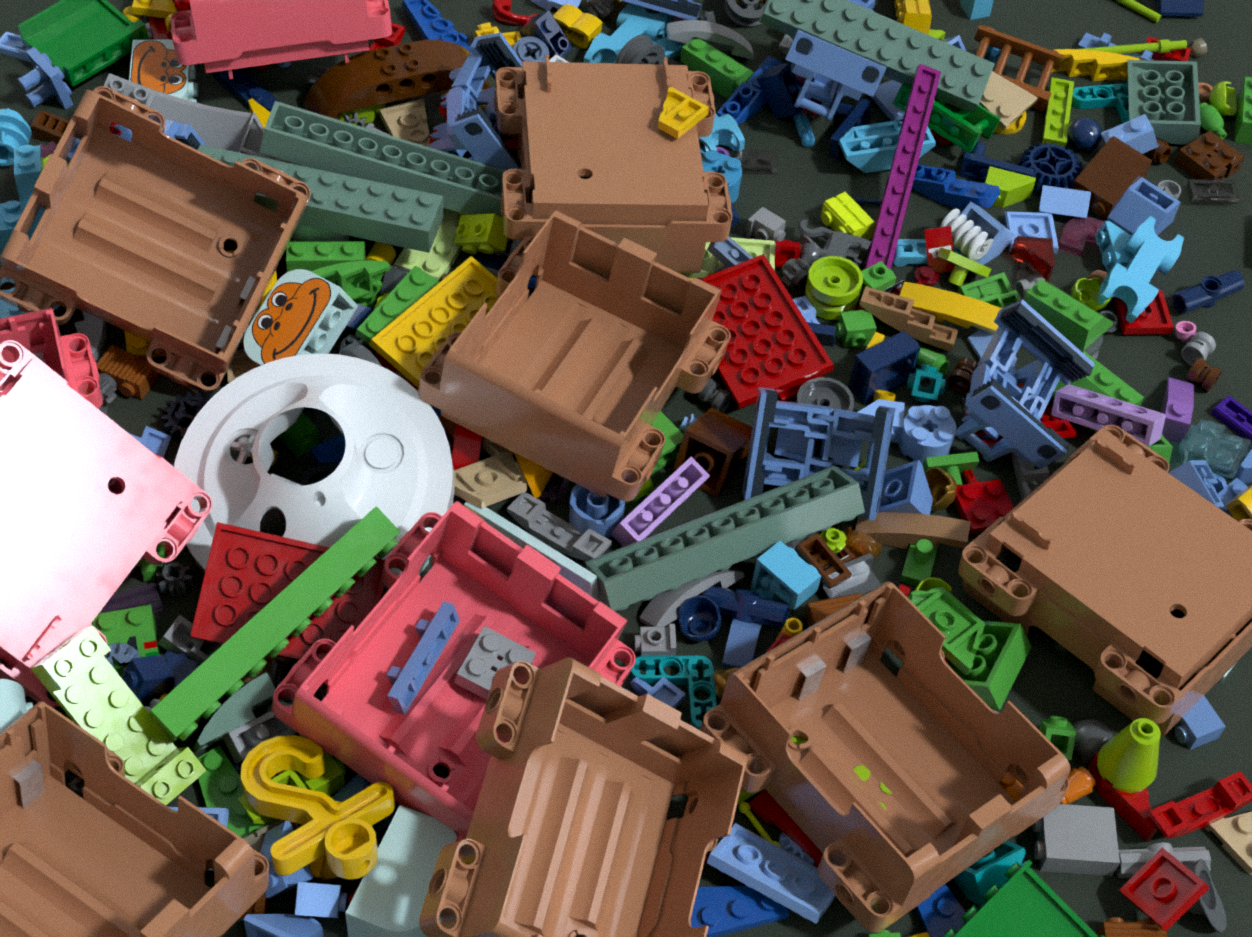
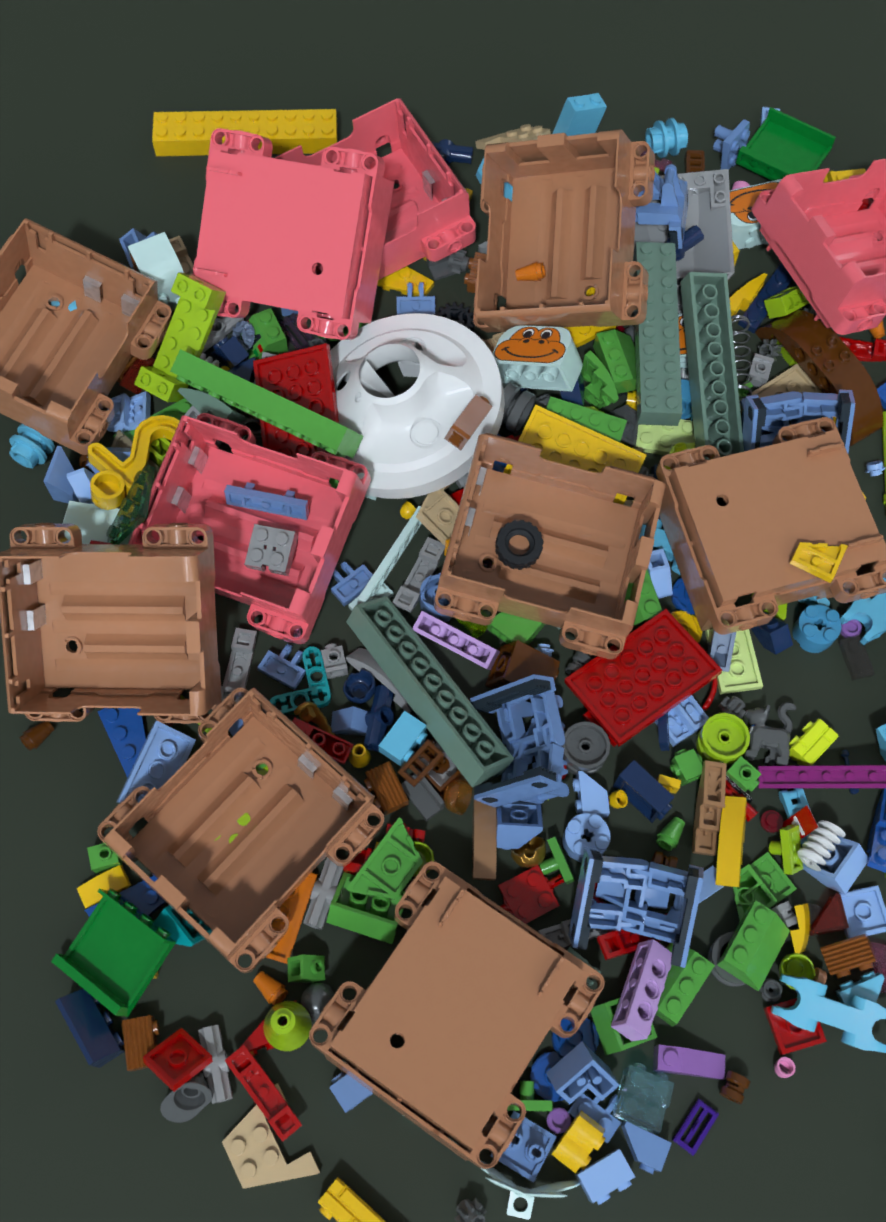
camera: 80 degrees right, 15 degrees up
(172, 299) = (531, 272): none -> orange cone
(296, 89) = (785, 302): none -> lime brick
(397, 391) = (468, 421): none -> slope
(405, 801) = (133, 507): none -> clear green plate
(571, 375) = (519, 528): none -> black tyre
(766, 226) = (776, 677): light grey brick -> none
(785, 251) = (753, 697): red tile -> none
(837, 544) = (443, 774): lime plate -> none
(918, 562) = (456, 847): bright green tile -> none
(936, 385) = (640, 830): teal brick -> none
(1052, 276) = (801, 935): none -> yellow slope
(1077, 840) = (222, 993): light grey brick -> none
(1078, 247) = (849, 954): none -> dark orange brick
(1200, 346) = (765, 1081): light grey wheel -> none
(1208, 291) = (853, 1101): dark blue piece -> none

